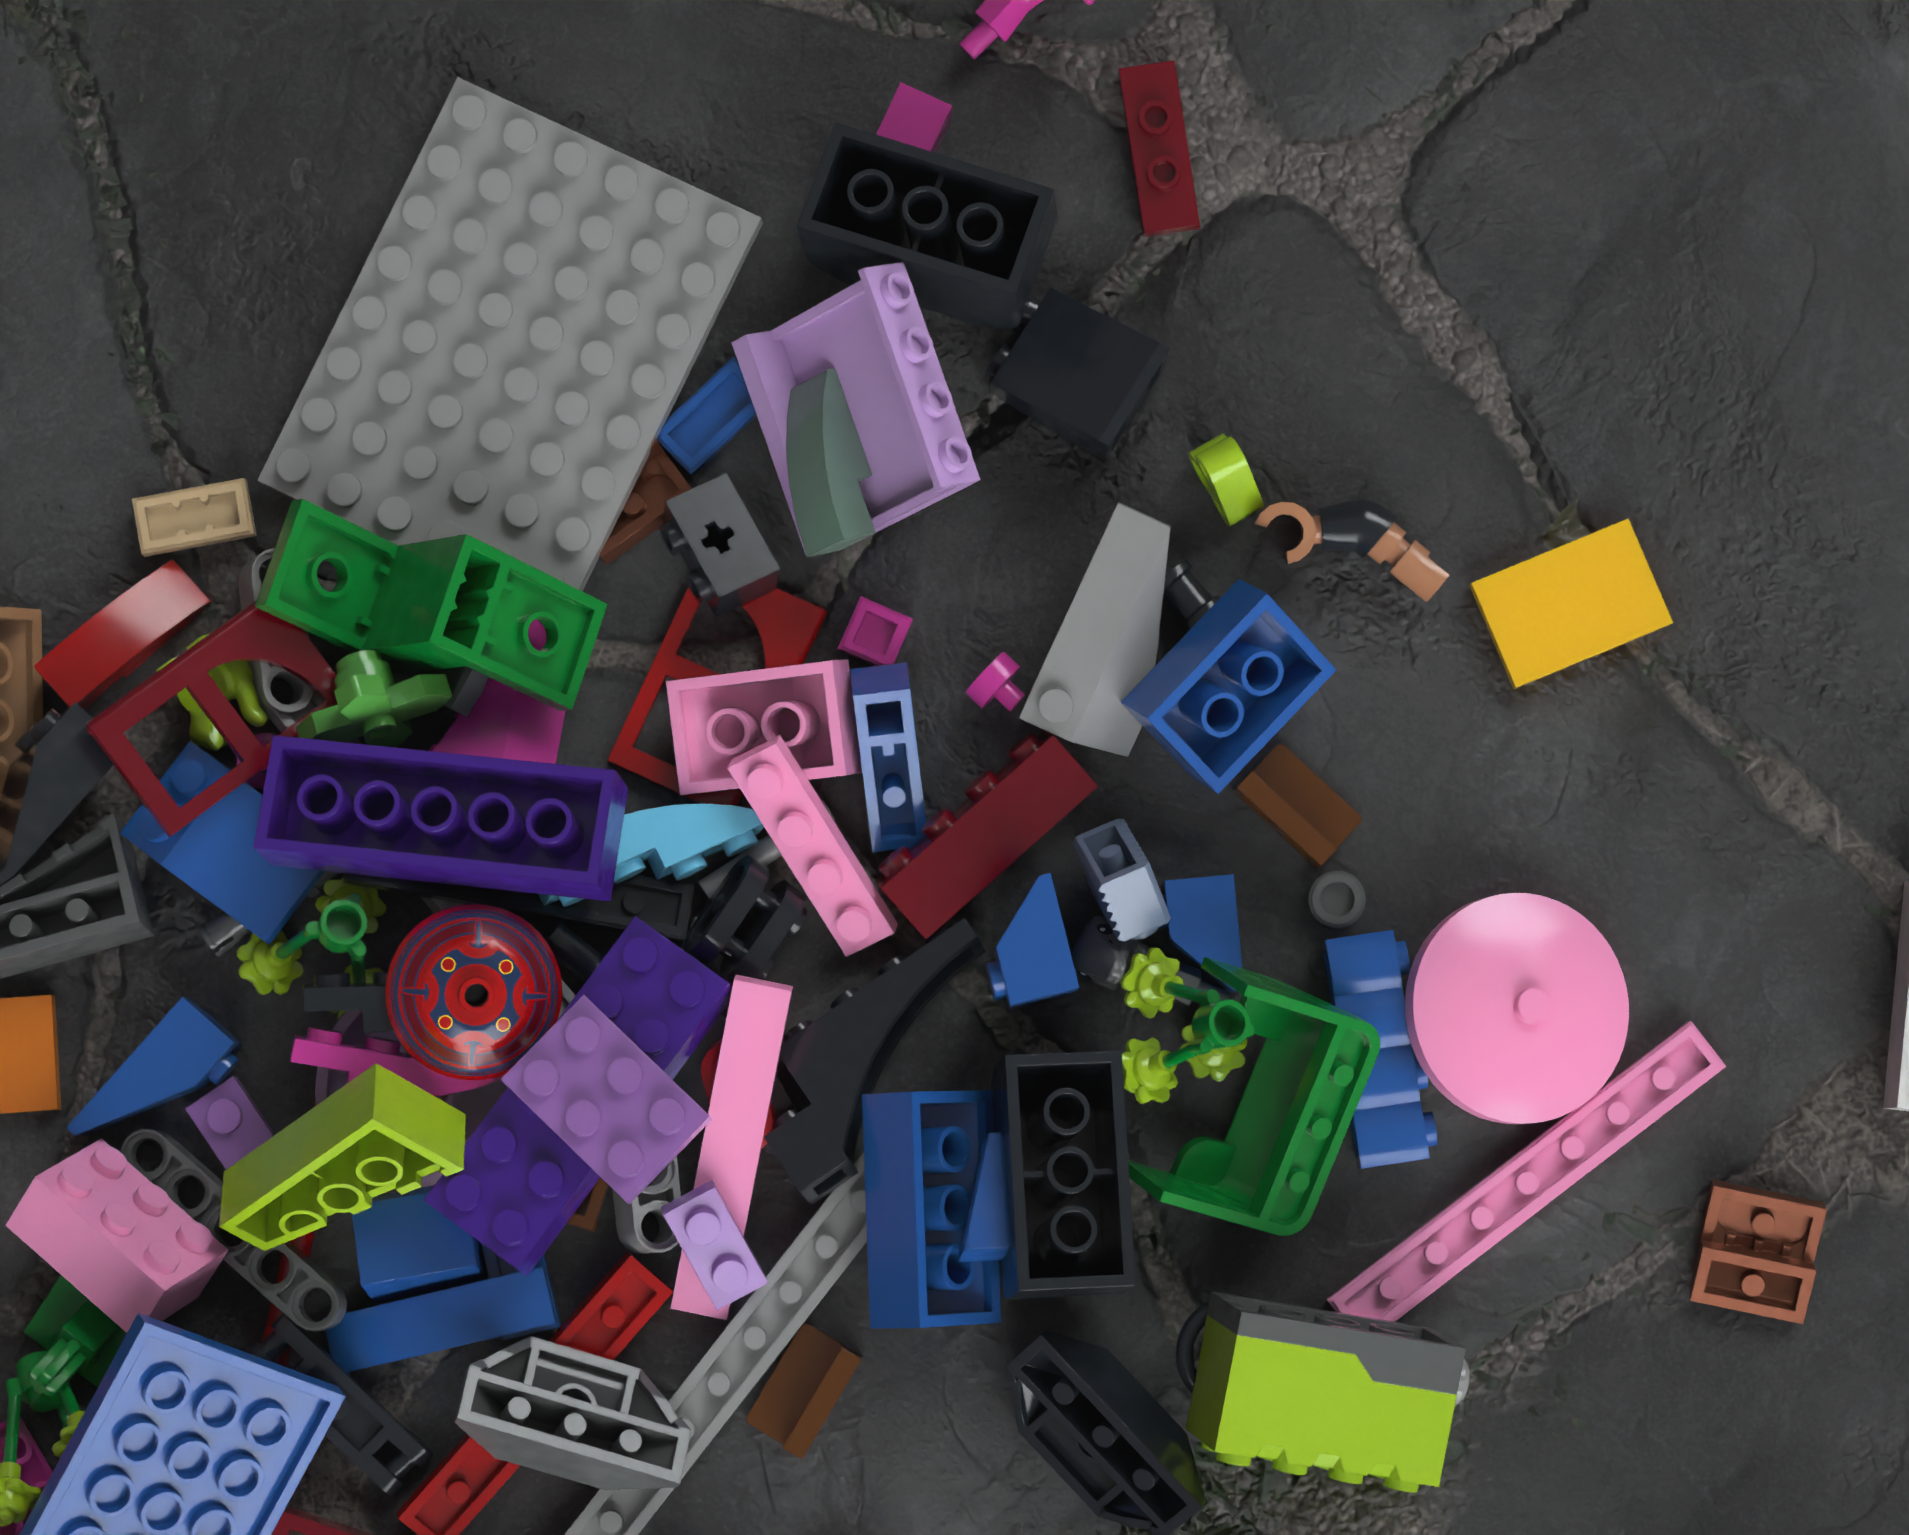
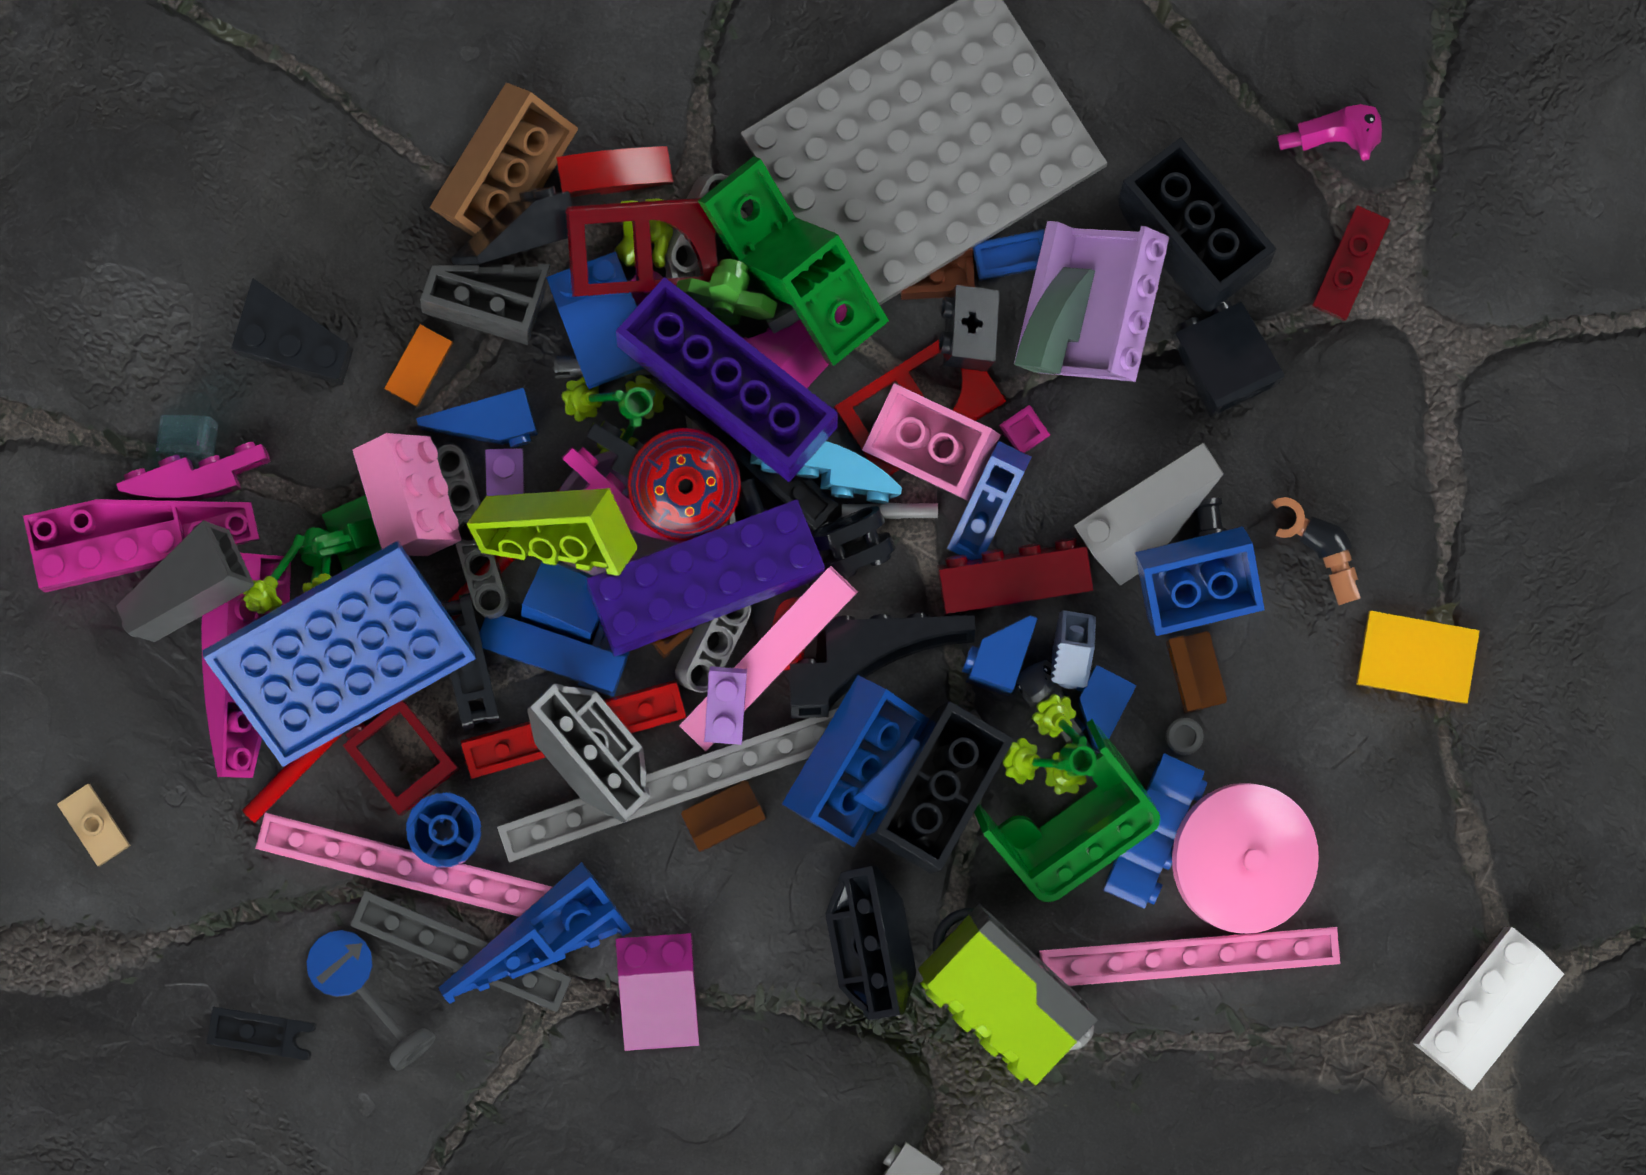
camera: 30 degrees right, 0 degrees up
(194, 517) = (693, 131): tan plate -> none
(606, 1099) = (719, 587): medium lavender plate -> none
(812, 845) = (916, 523): bright pink plate -> none
(916, 119) = (1226, 162): dark pink brick -> none
(996, 683) = (1073, 499): dark pink tile -> none
(1227, 478) = (1271, 468): lime piece -> none
(1757, 1251) = (1292, 1075): copper slope -> none

